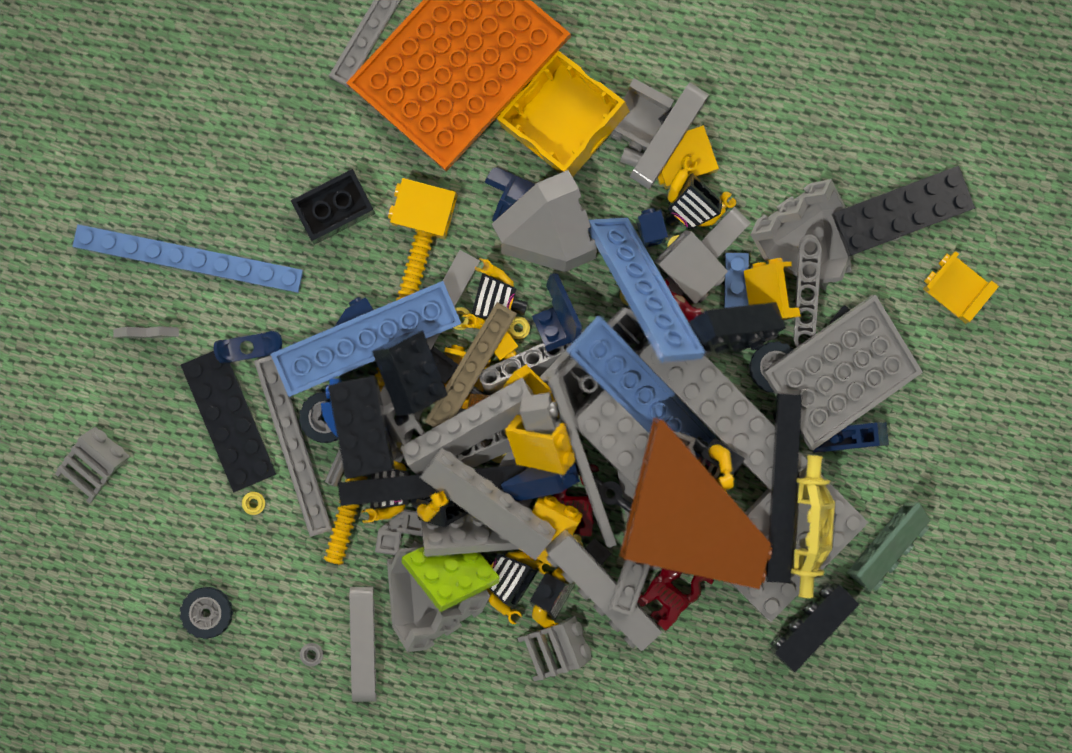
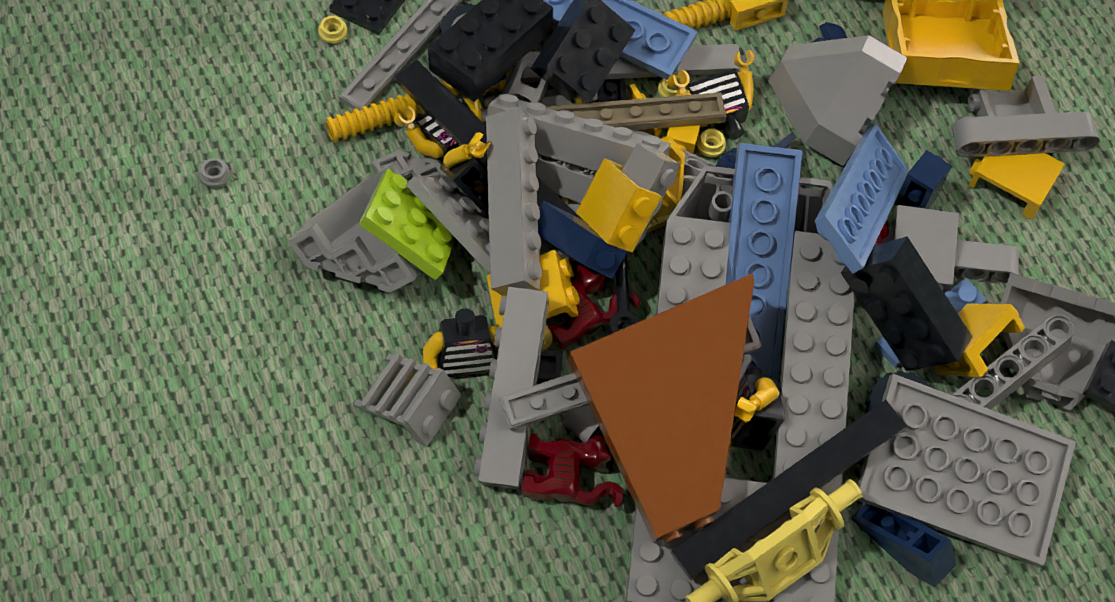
camera: 45 degrees right, 25 degrees down
(193, 614) = (171, 51): black wheel -> none
(362, 644) = (261, 209): light grey beam -> none
(515, 574) = (441, 299): torso -> none
(580, 458) = (642, 249): light grey tile -> none
(693, 201) = (987, 203): torso -> none

